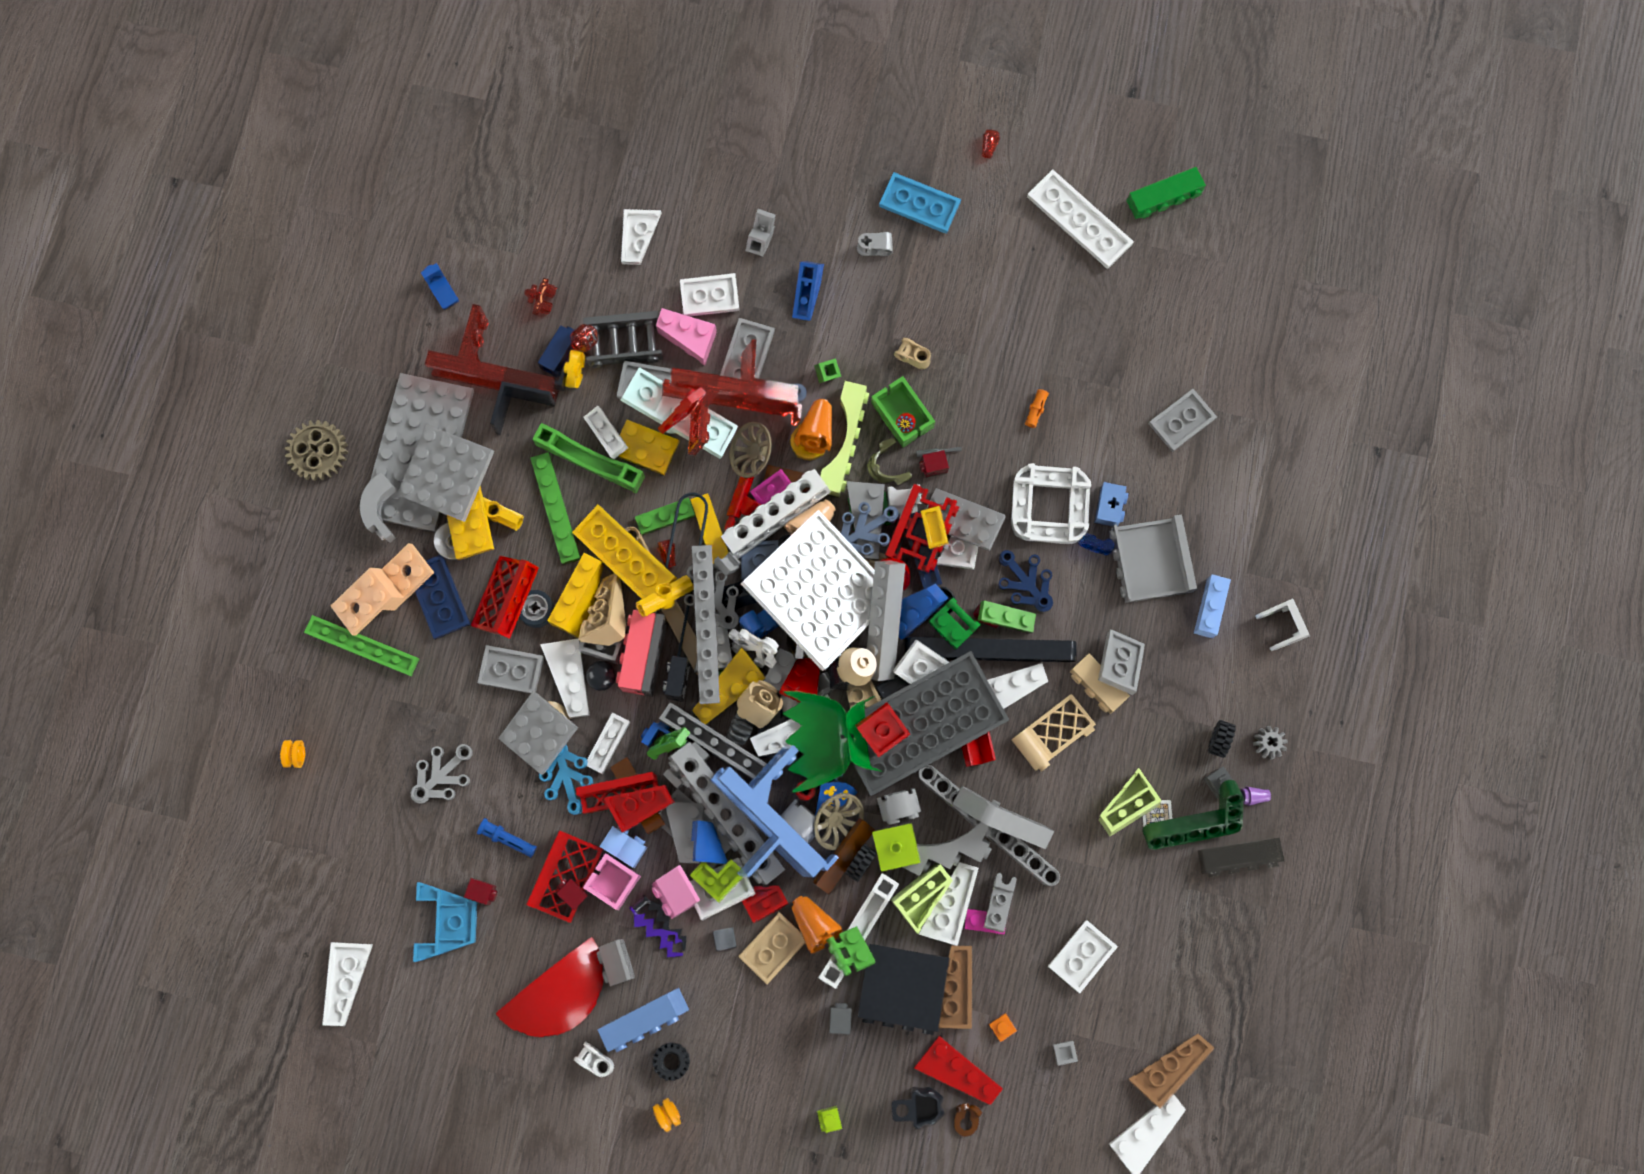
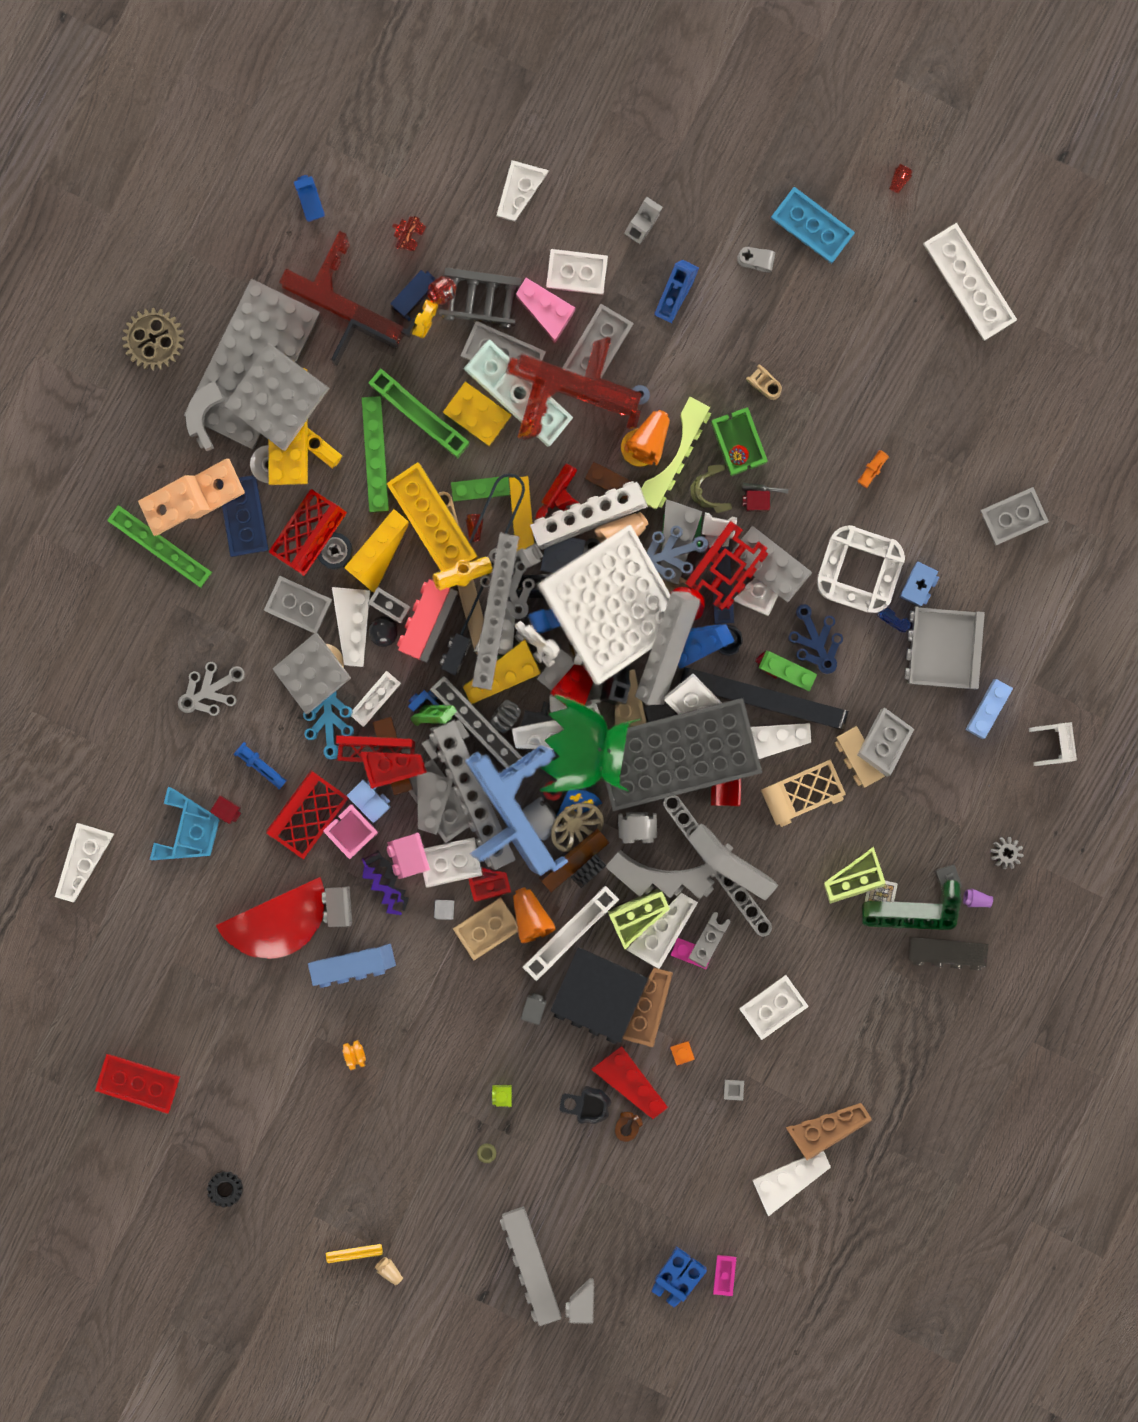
camera: 15 degrees right, 10 degrees up
(292, 754) = (74, 636): light orange wheel -> none
(571, 893) = (310, 832): dark red brick -> none
(593, 1060) = (297, 989): white piece -> none
(605, 432) = (441, 391): white plate -> none
(607, 616) = (402, 577): tan wedge -> none
(658, 1061) = (357, 1008): black tyre -> none
(685, 408) = (522, 395): red wing -> none
(706, 843) = (447, 818): blue slope -> none
(717, 884) = (447, 857): lime plate -> none
(755, 451) = (584, 445): dark tan wheel -> none
(759, 703) = (528, 698): tan brick -> none
(767, 489) = (590, 487): dark pink plate -> none
(832, 370) = (680, 380): bright green plate -> none
(856, 666) = (629, 687): tan cone -> none
(856, 949) = (563, 947): bright green plate -> none
(882, 729) = (639, 752): red plate -> none
(896, 847) = (625, 865): lime plate -> none
(934, 527) = (738, 569): yellow tile -> none
(950, 628) = (729, 669): green plate -> none
(1166, 193) = (1065, 275): green brick -> none
(1221, 738) = (960, 838): black tyre -> none

